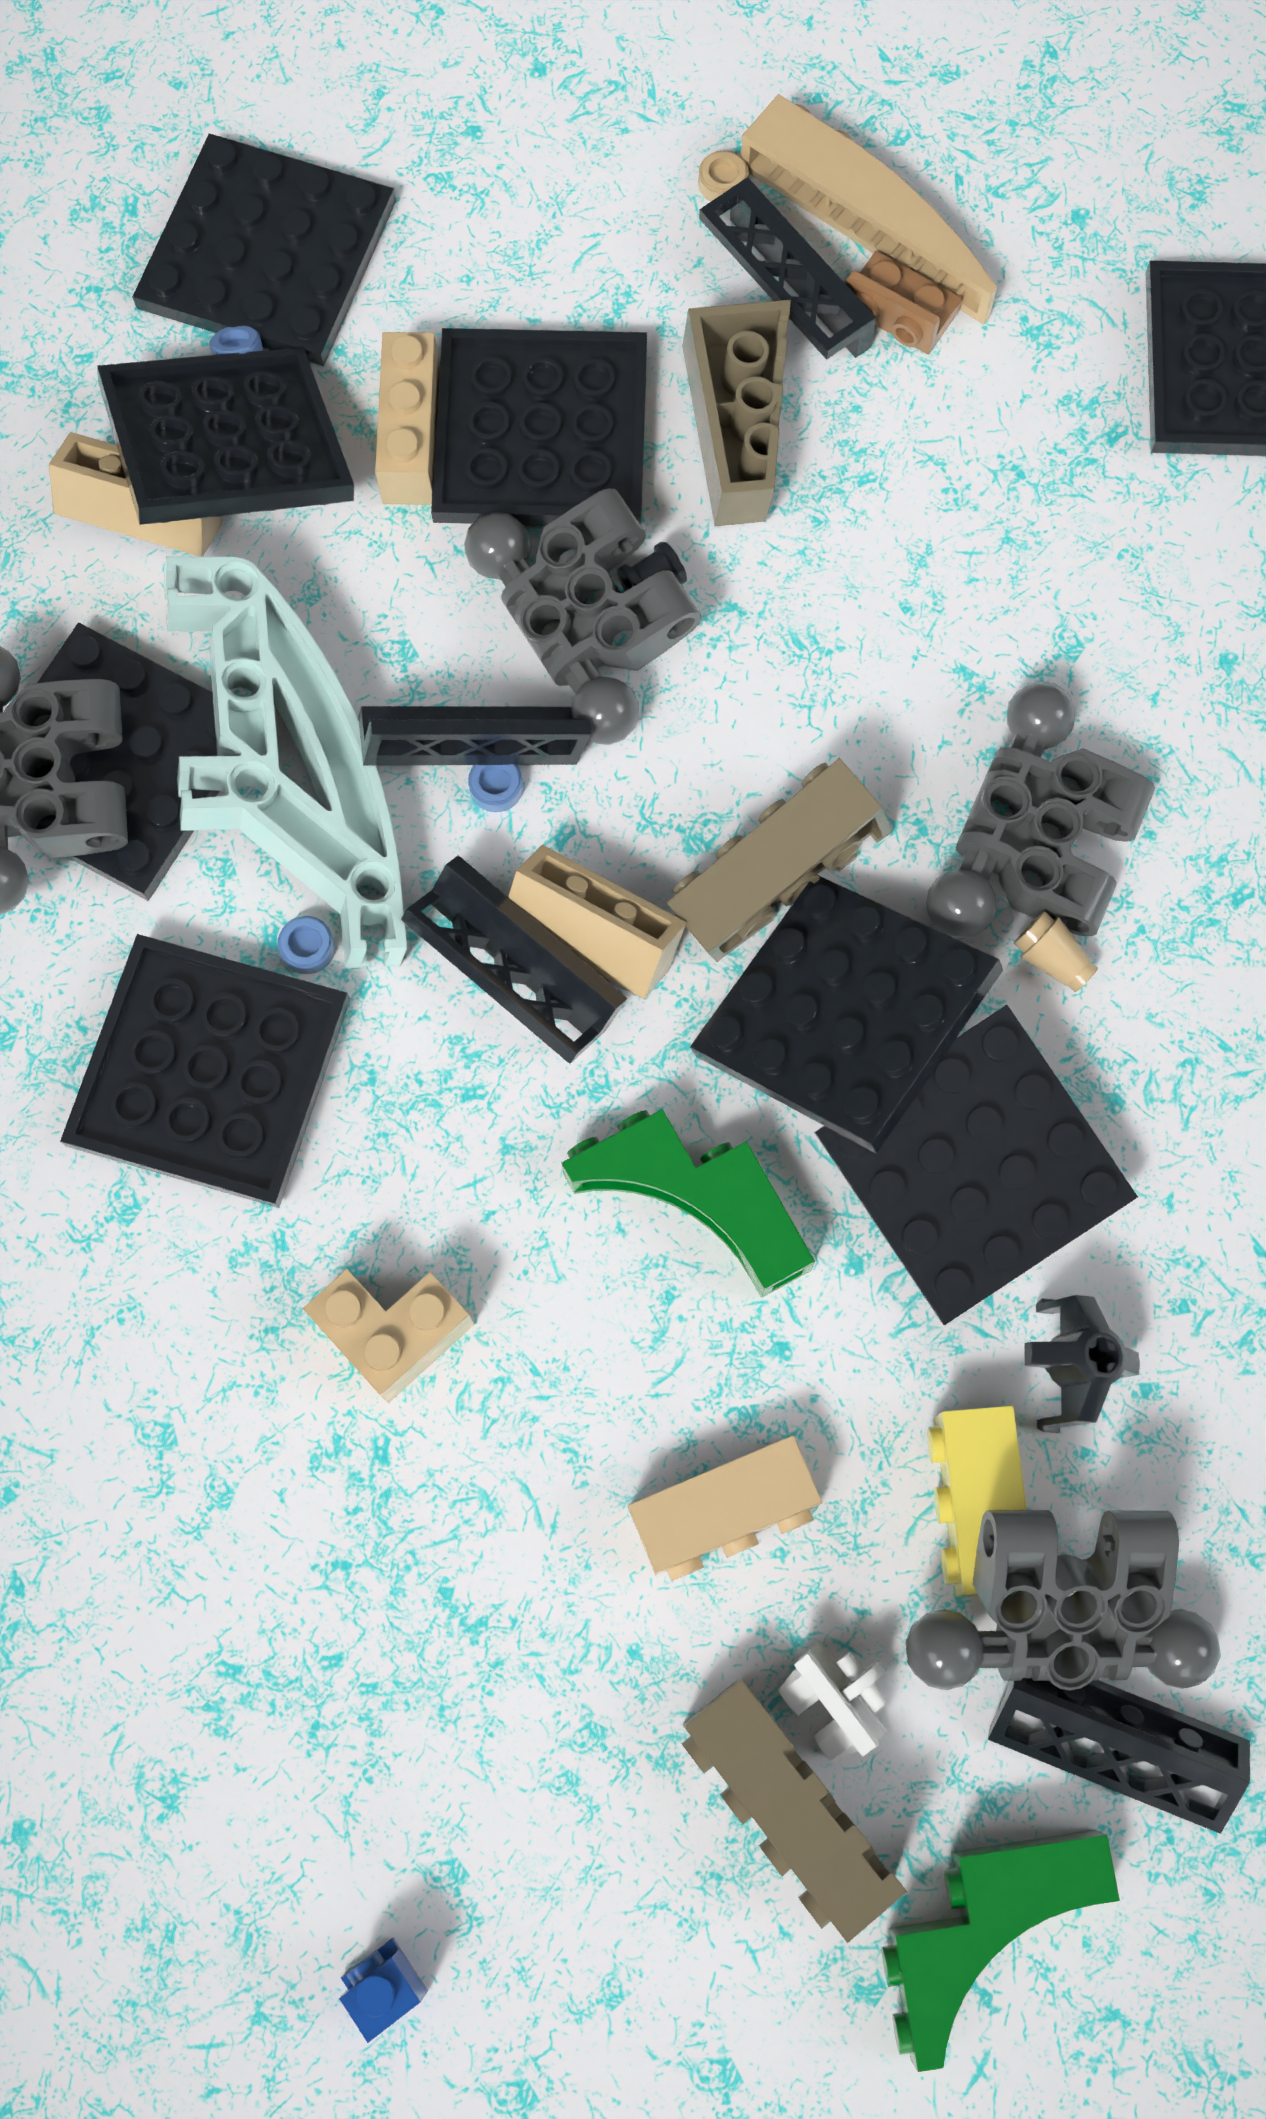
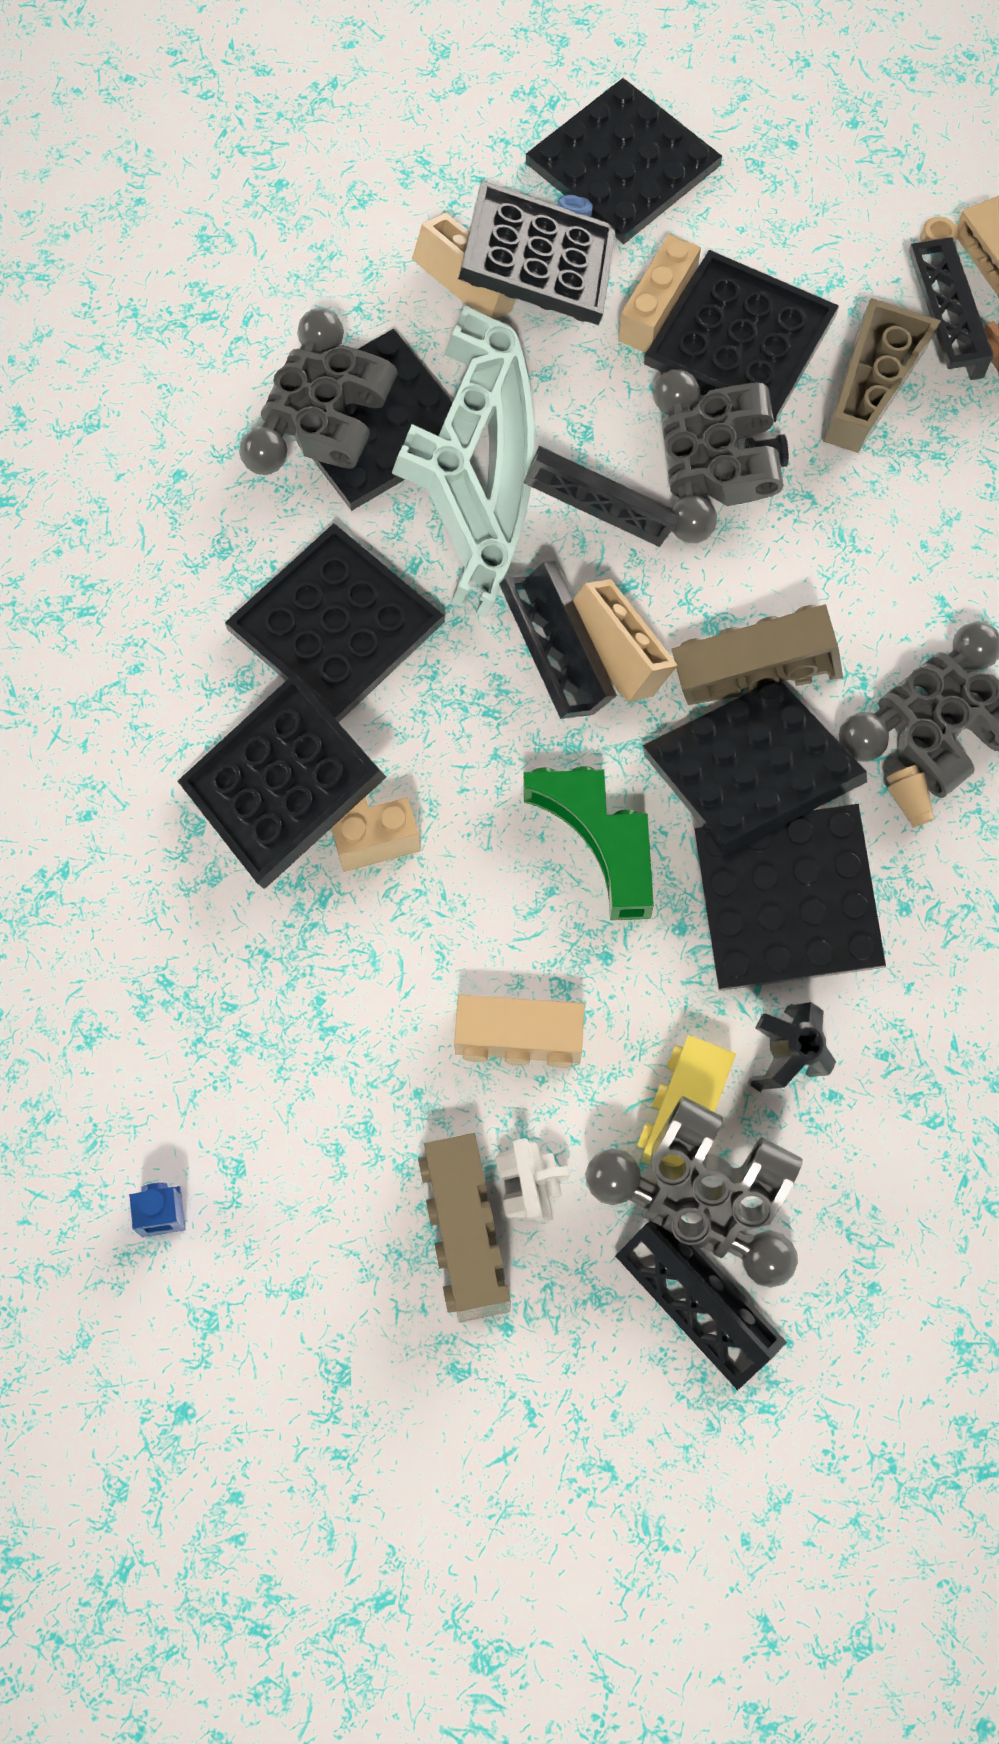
camera: 25 degrees right, 5 degrees down
(251, 1332) = (280, 780): none -> black plate
(306, 945) = (434, 578): medium blue tile -> none
(495, 786) = (601, 537): medium blue tile -> none
(1000, 1897) = (572, 1351): green arch -> none

